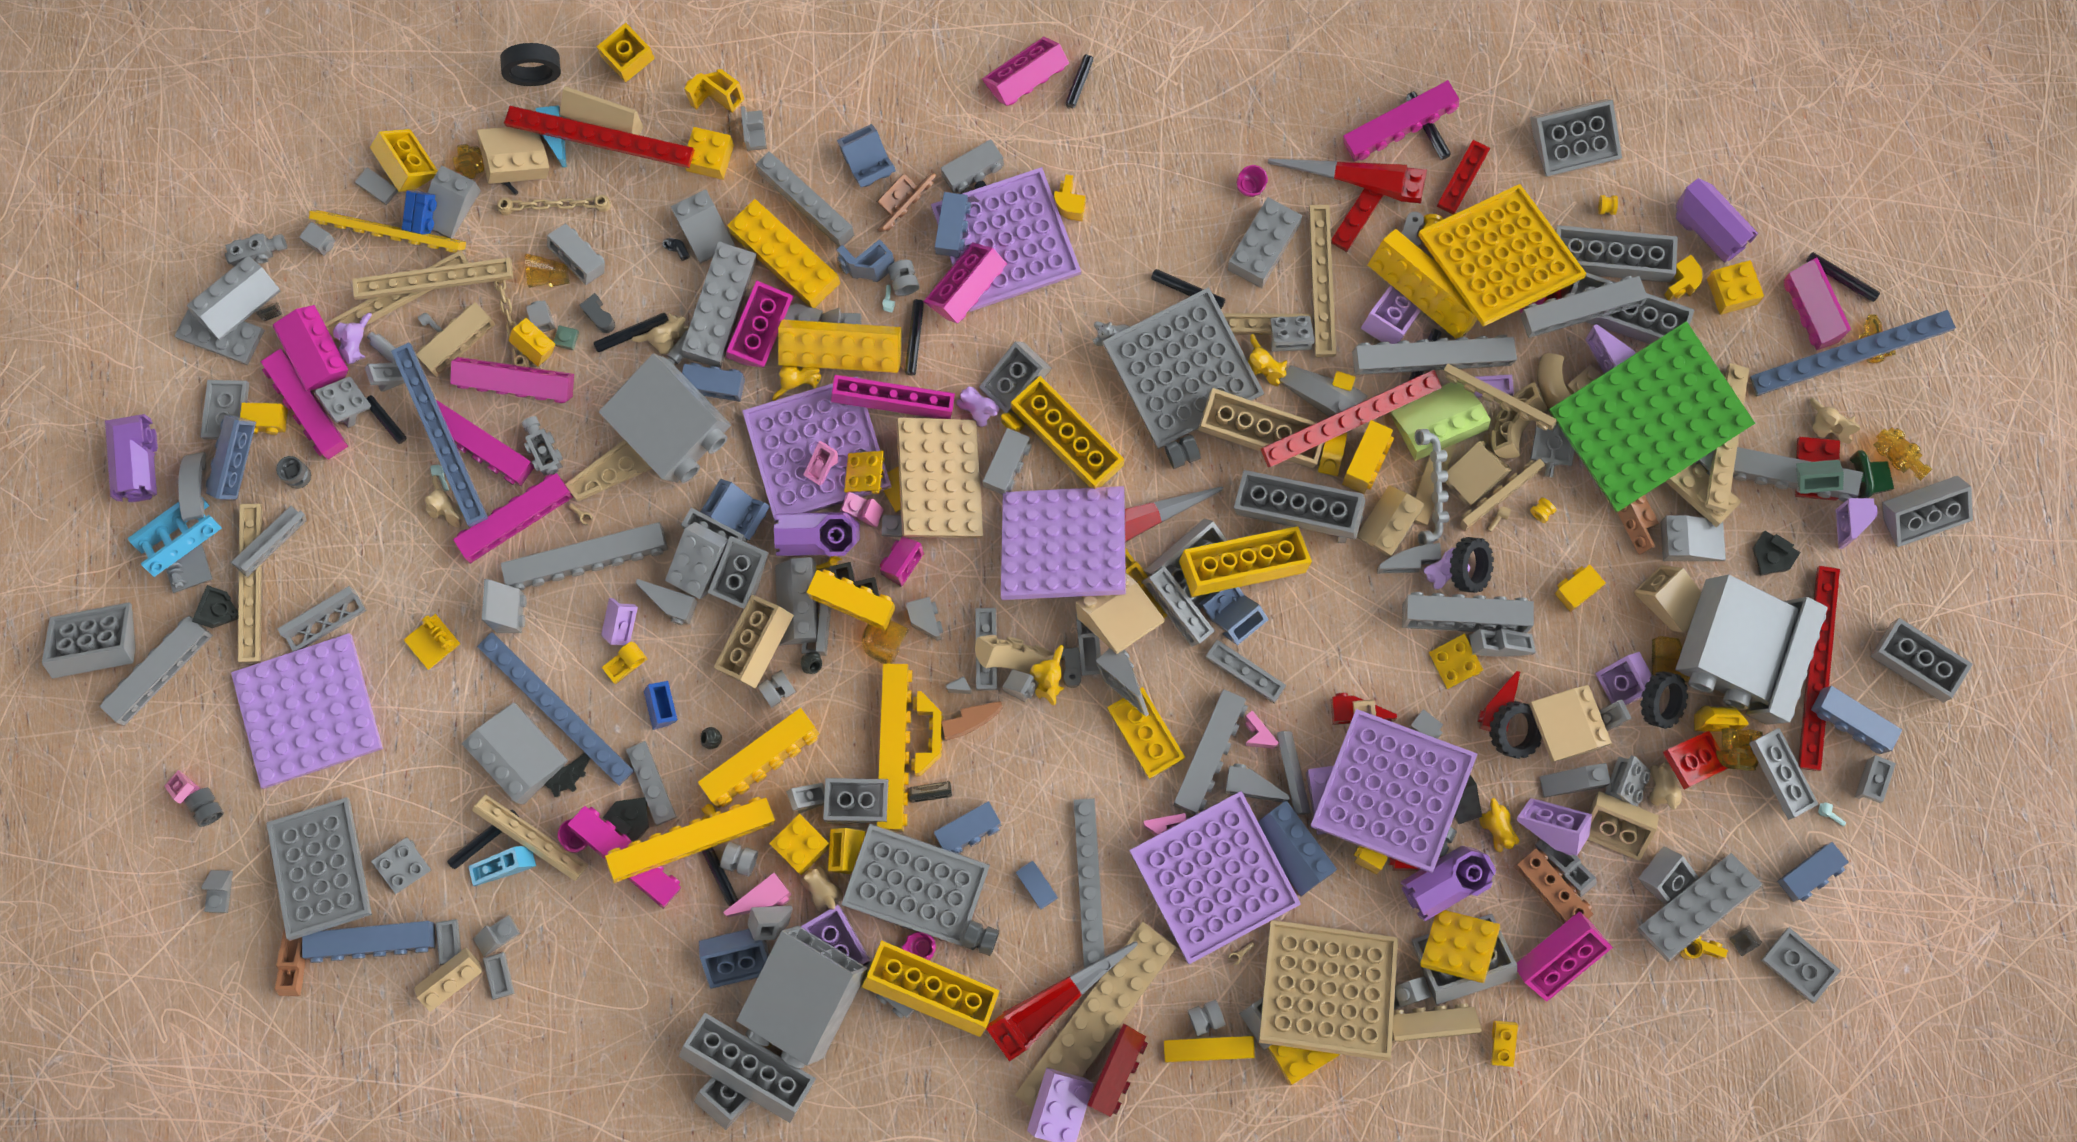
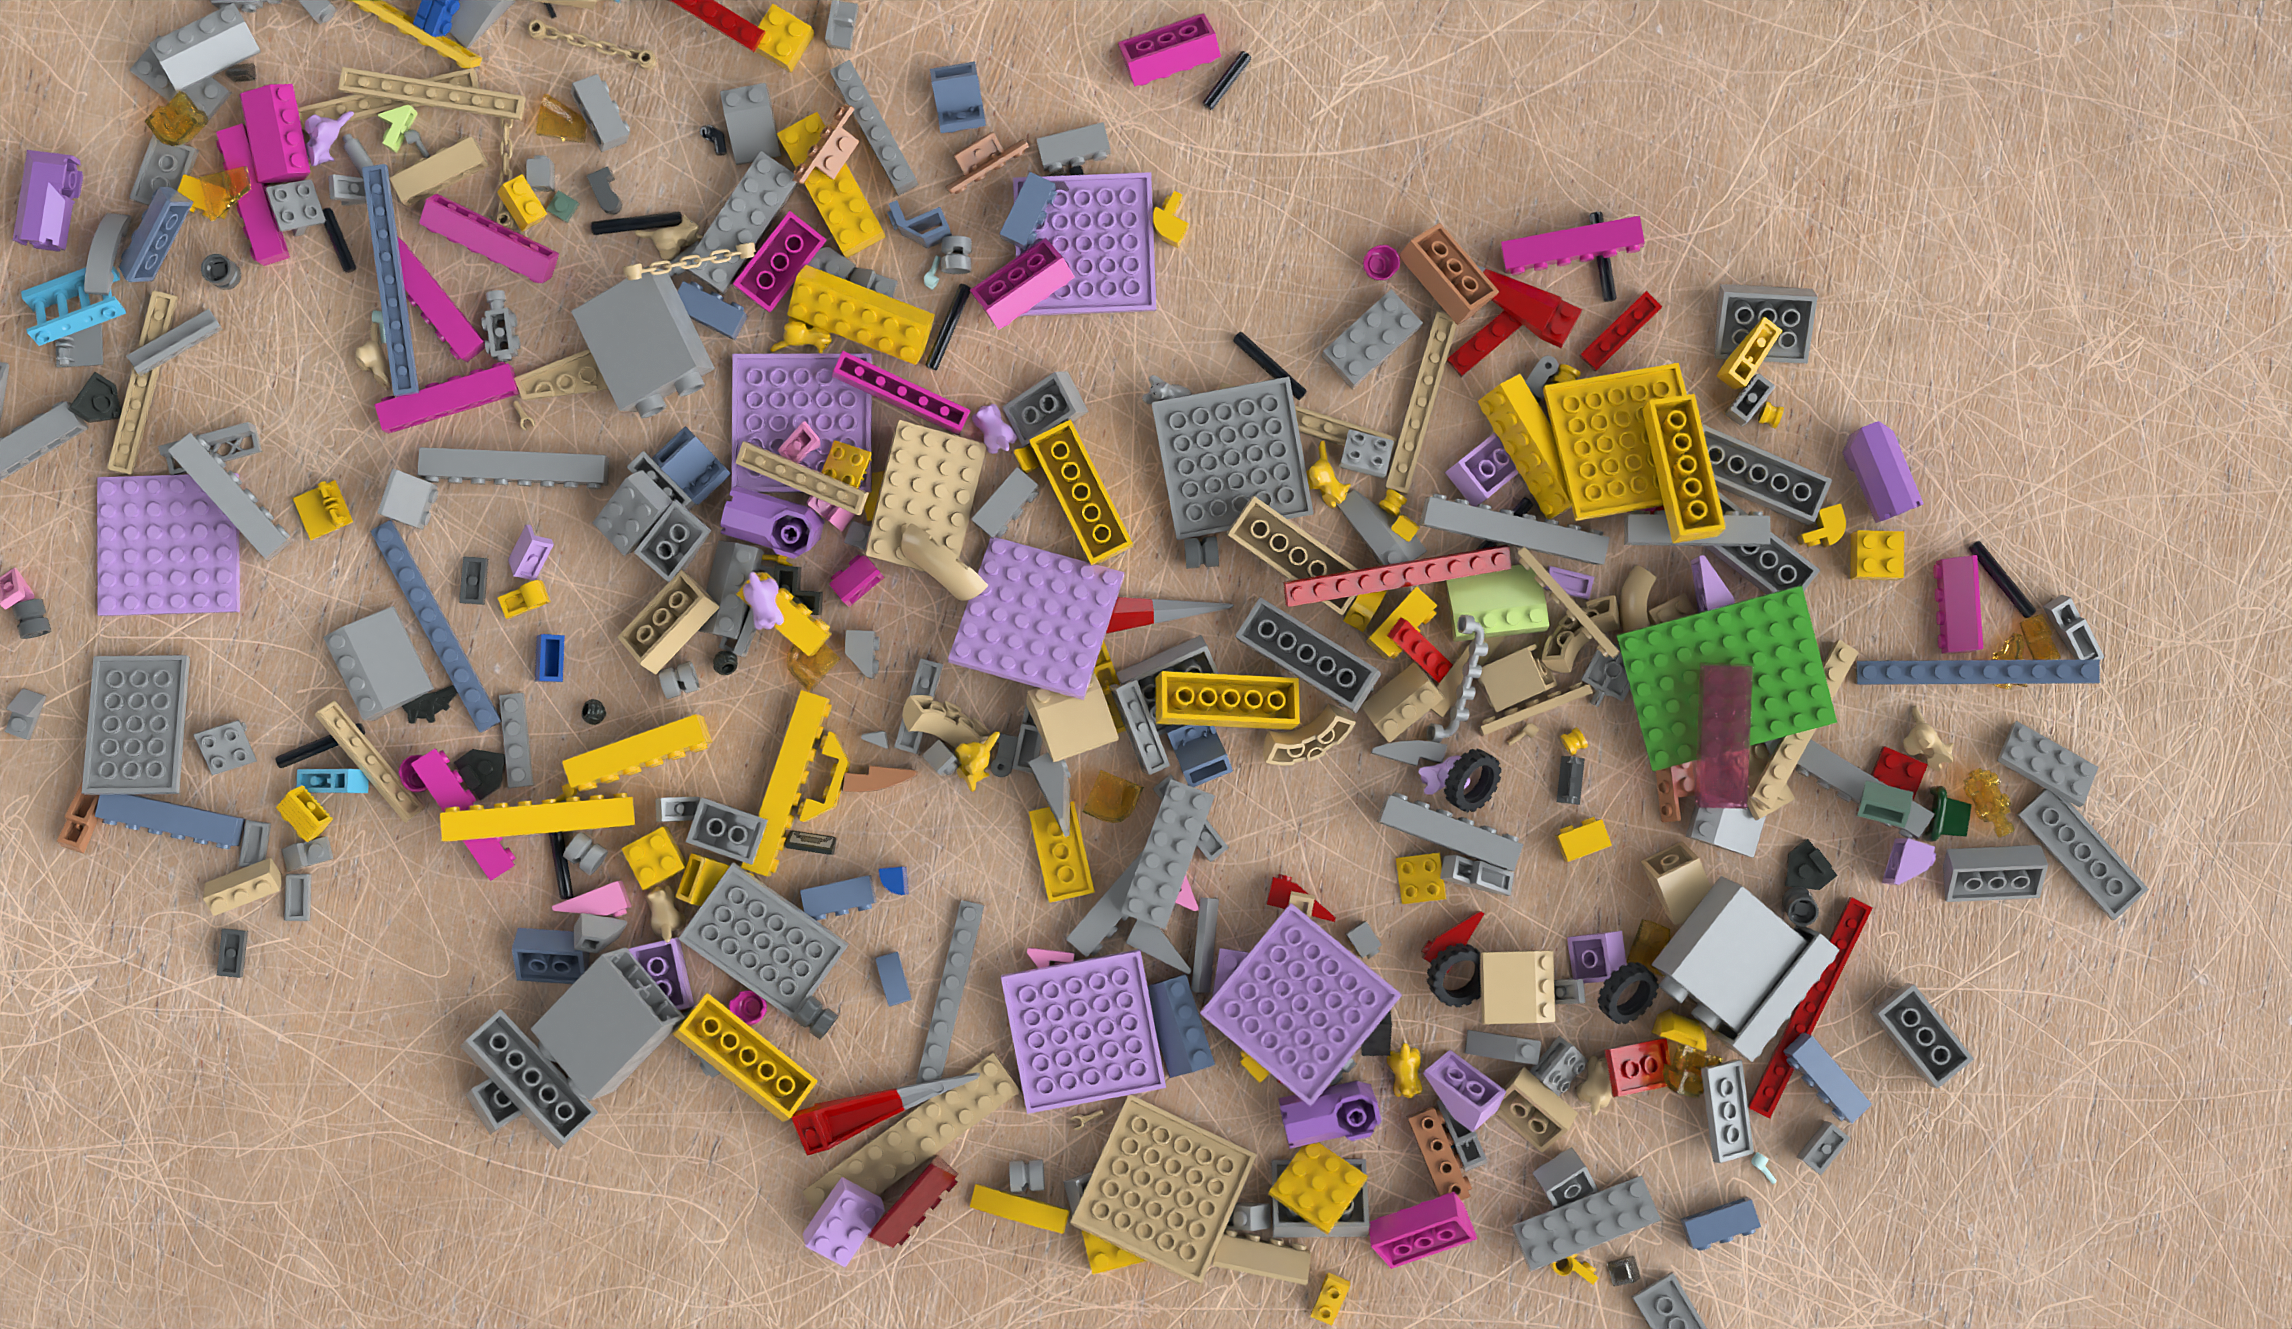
camera: 15 degrees right, 10 degrees up
(226, 362) = (177, 121): none -> clear yellow brick
(279, 403) = (224, 189): none -> clear yellow slope
(350, 649) = (227, 494): none -> light grey brick
(410, 310) = (401, 121): none -> yellowish green slope
(454, 1041) = (232, 953): none -> dark grey plate
(485, 900) = (304, 813): none -> yellow brick
(577, 660) = (473, 580): none -> dark grey plate
(644, 357) = (634, 271): none -> tan piece
(674, 604) = (592, 549): light grey slope -> none
(776, 222) = (831, 150): none -> bracket
(829, 586) = (761, 598): none -> lavender animal
(831, 488) = (802, 478): none -> tan plate
(970, 521) = (941, 564): none -> tan brick
(1012, 797) = (895, 880): none -> blue brick
(1175, 673) = (1112, 798): none -> clear yellow brick
(1237, 702) = (1167, 854): none -> light grey brick
(1309, 172) = (1448, 273): none -> nougat slope
(1324, 577) = (1309, 741): none -> tan brick
(1326, 365) = (1393, 502): none -> yellow wheel
(1390, 470) = (1419, 650): none -> red plate
(1551, 543) = (1570, 780): none -> dark grey hinge
(1556, 257) = (1683, 468): none -> yellow brick
(1574, 163) = (1749, 354): none -> yellow slope
(1587, 197) = (1749, 400): none -> light grey brick
(1667, 460) = (1723, 735): none -> clear pink brick
(1780, 585) = (1800, 906): none -> dark grey wheel
(1889, 312) = (2038, 638): none -> clear yellow slope
(1913, 296) = (2073, 629): none -> light grey slope
(1937, 409) = (2047, 764): none -> light grey plate
(1993, 471) = (2082, 853): none -> light grey plate

